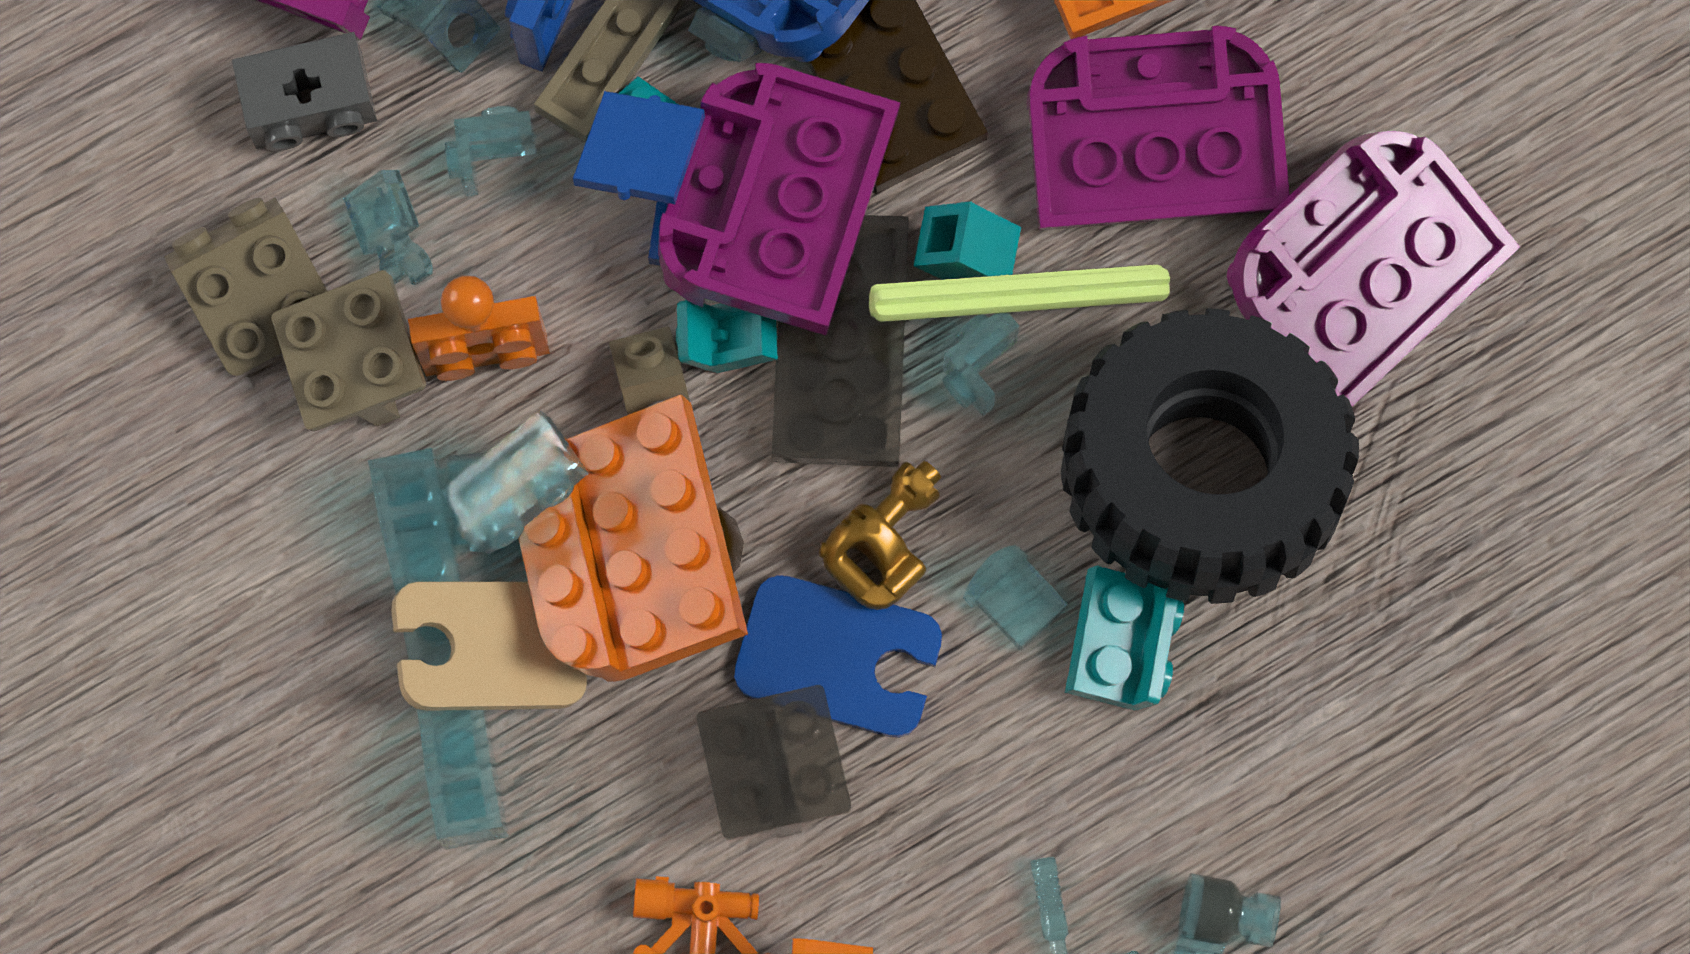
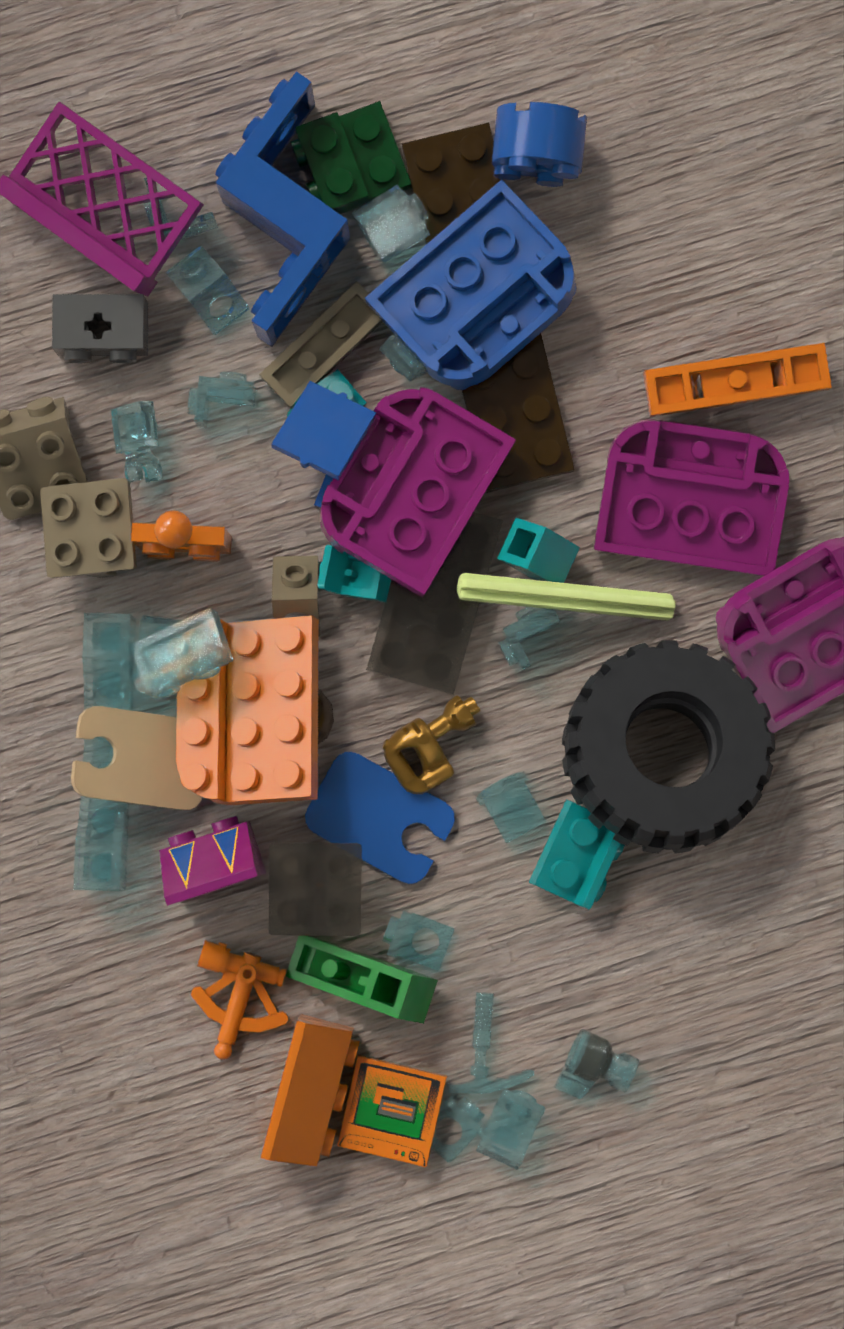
camera: 20 degrees right, 10 degrees up
(622, 762) = (210, 861): none -> magenta slope
(868, 876) = (362, 979): none -> green slope
(906, 803) = (400, 935): none -> clear light blue bracket

